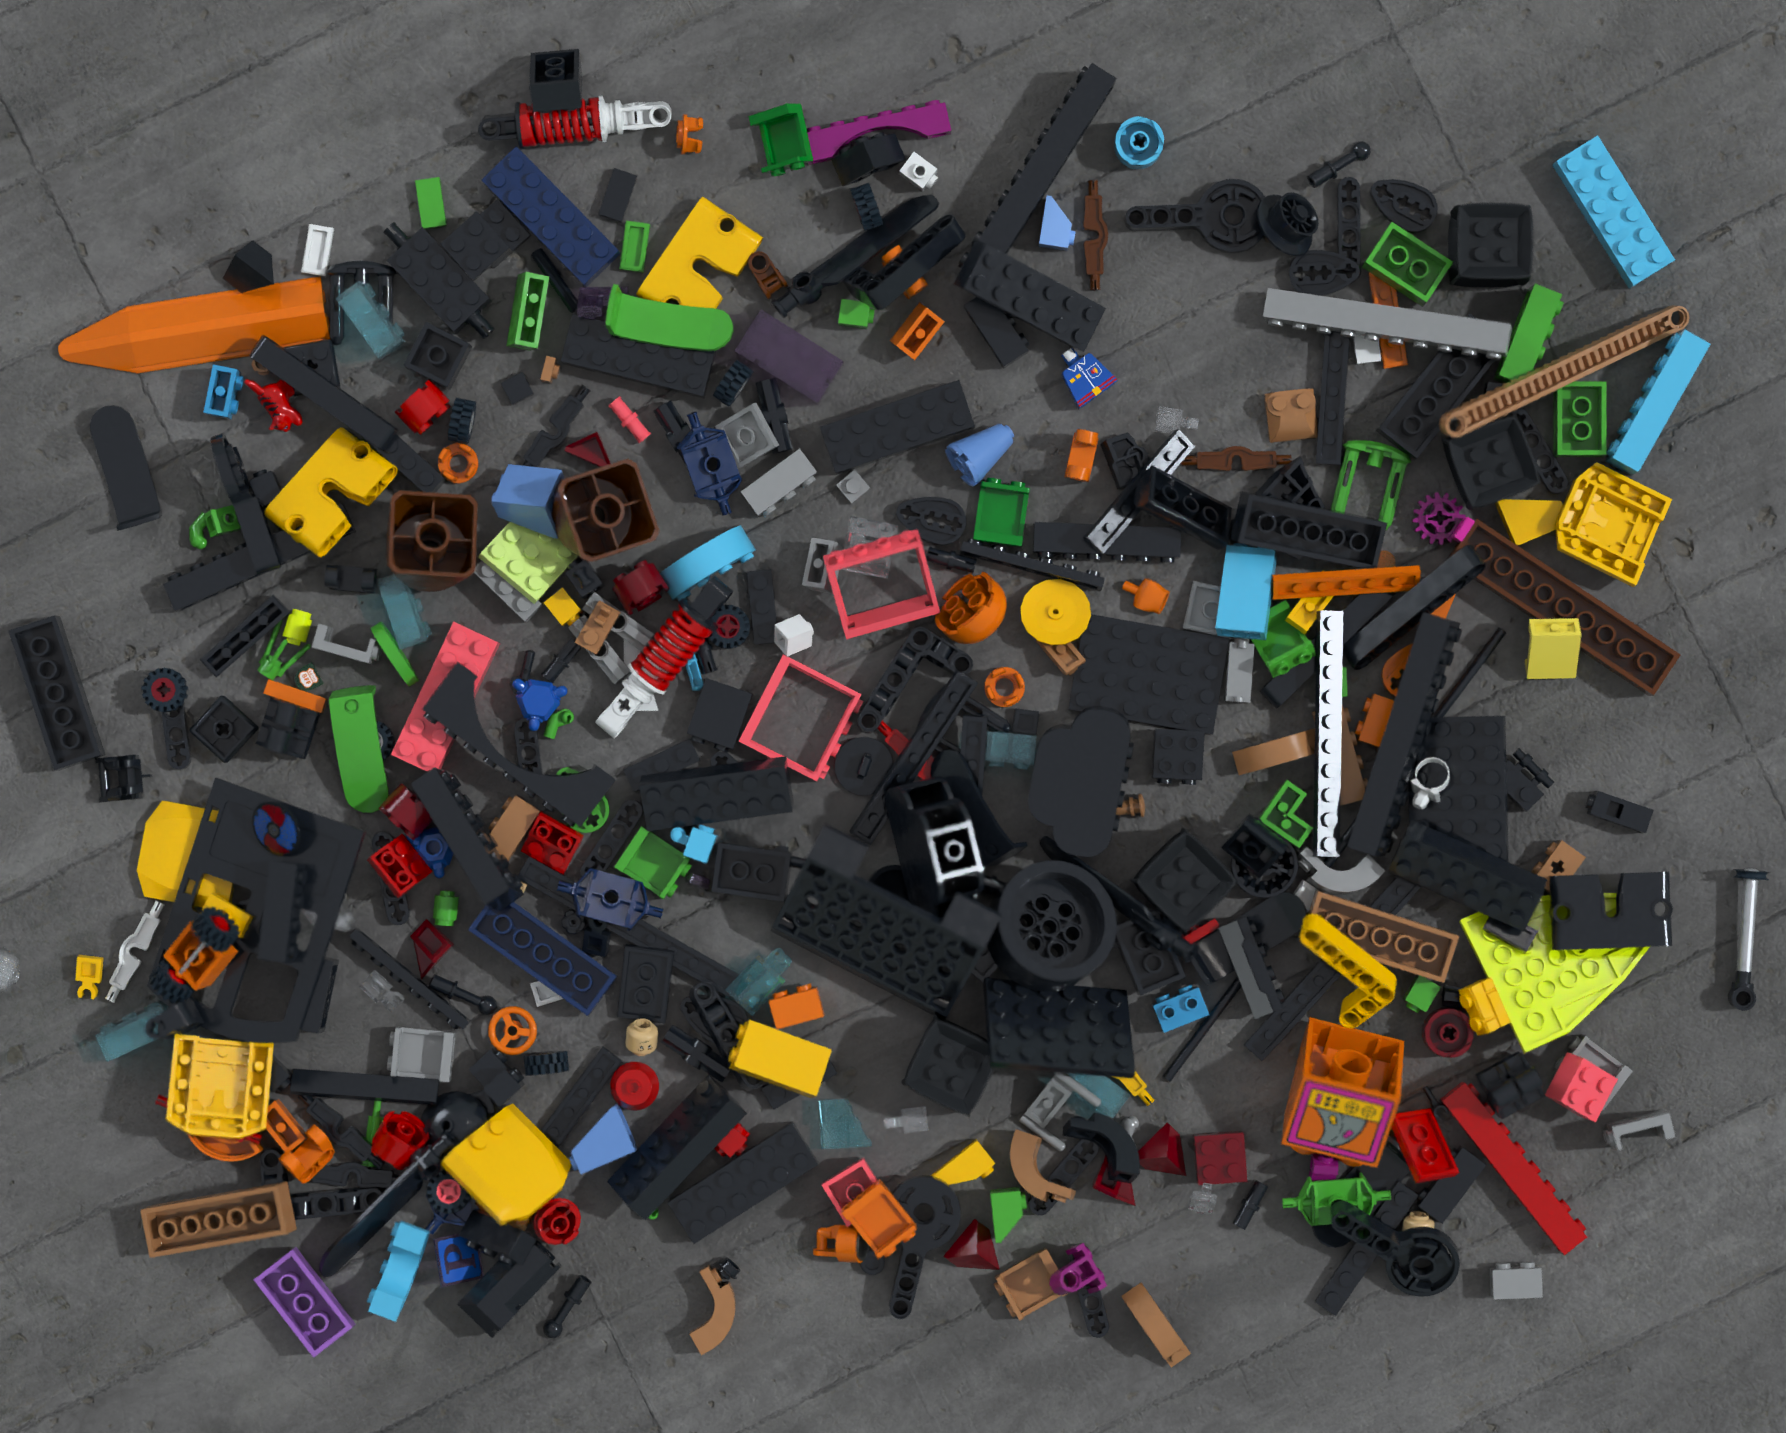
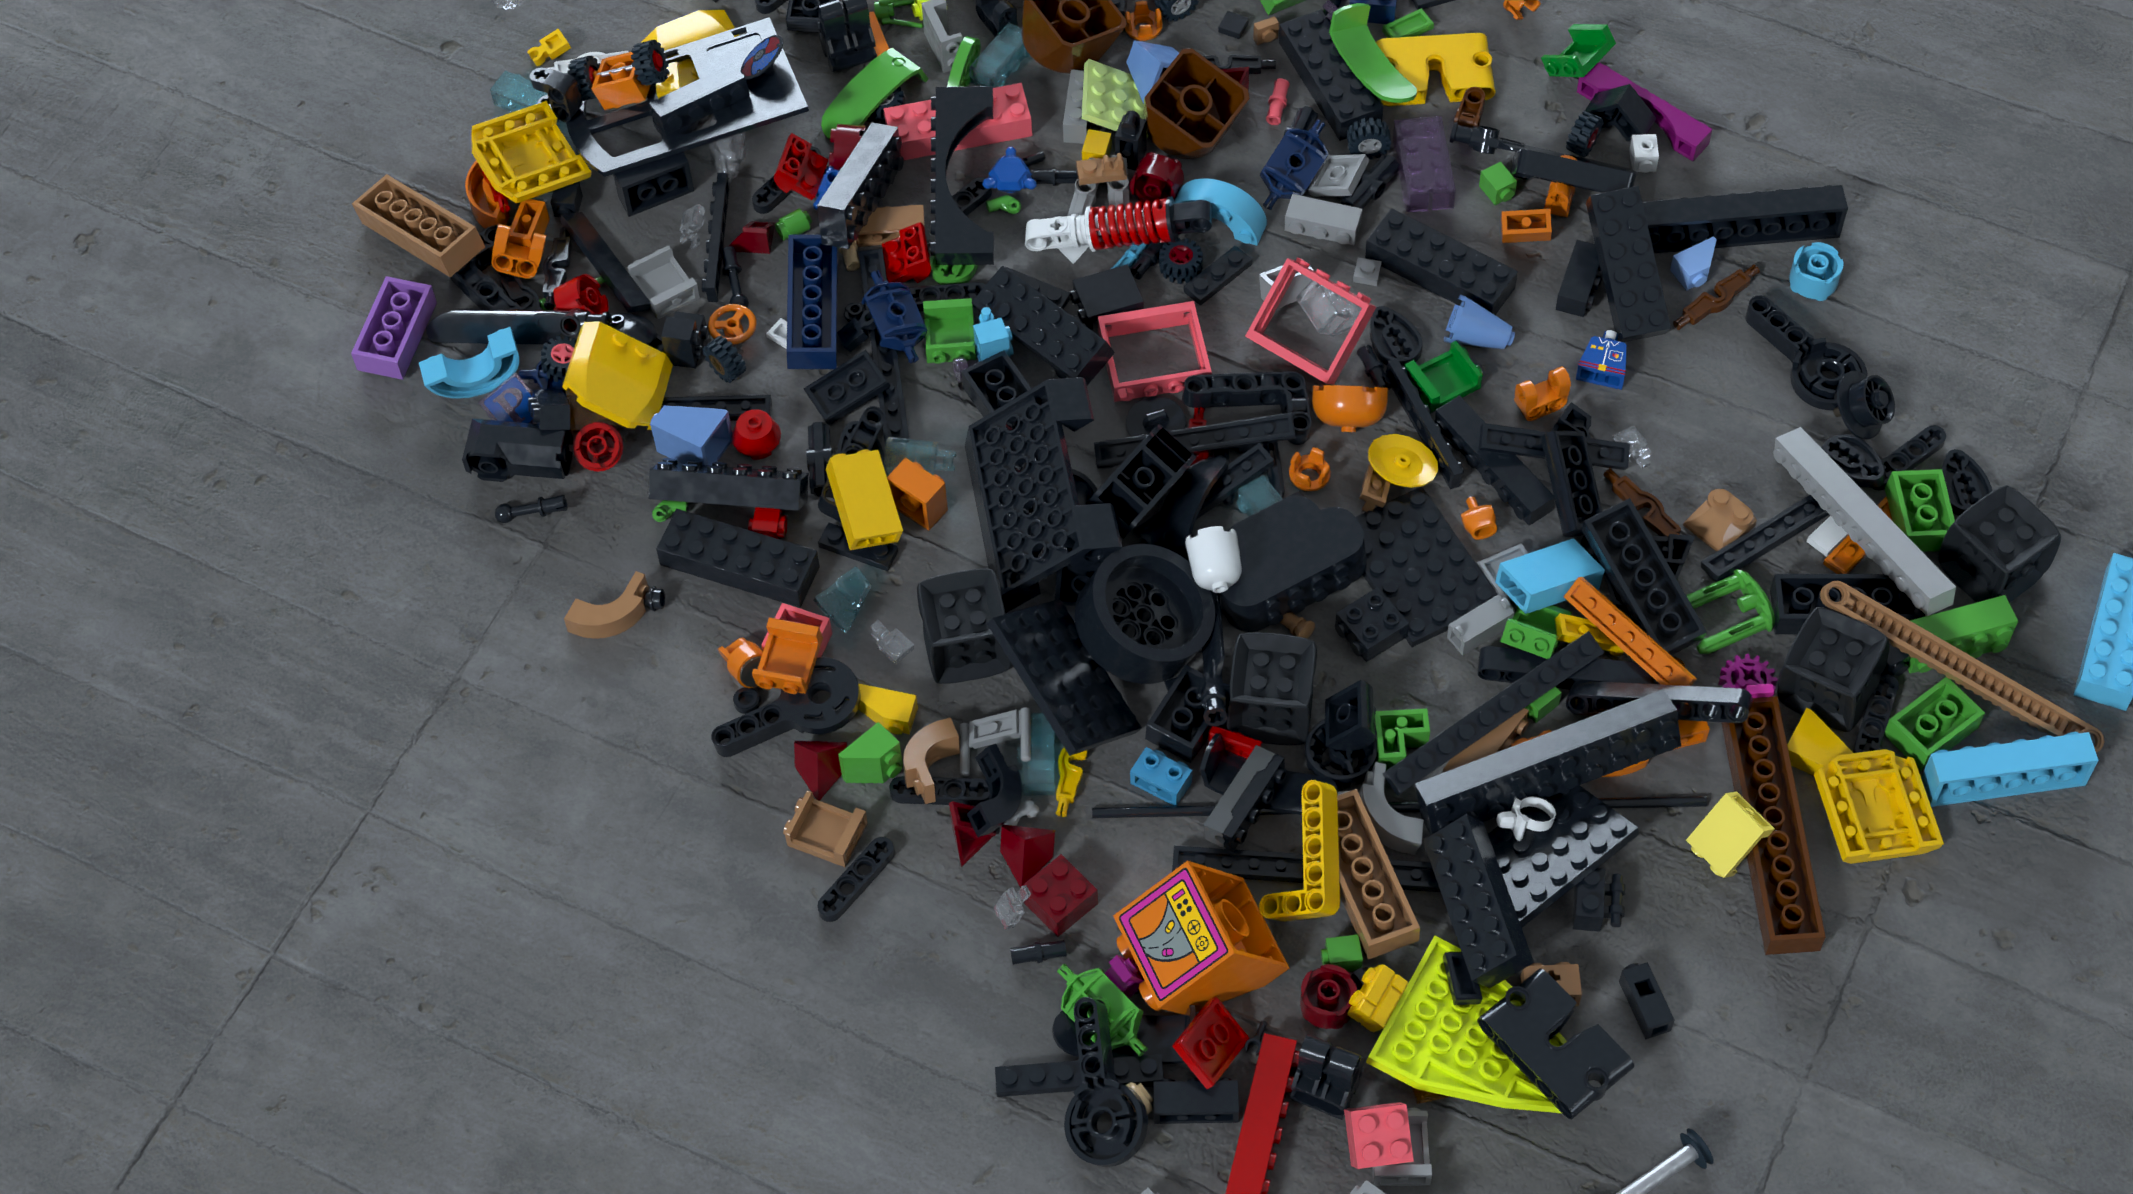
camera: 55 degrees right, 30 degrees down
(308, 678) = (897, 38): tile -> none
(641, 1037) = (800, 410): tan head -> none
(793, 635) = (1215, 300): white brick -> none
(1058, 847) = (1214, 558): none -> white cylinder
(1078, 1273) = (866, 846): magenta pin -> none
(1155, 1325) = (864, 947): medium nougat arch -> none
(1275, 752) = (1439, 685): medium nougat arch -> none
(1359, 151) = (1969, 428): black pin -> none

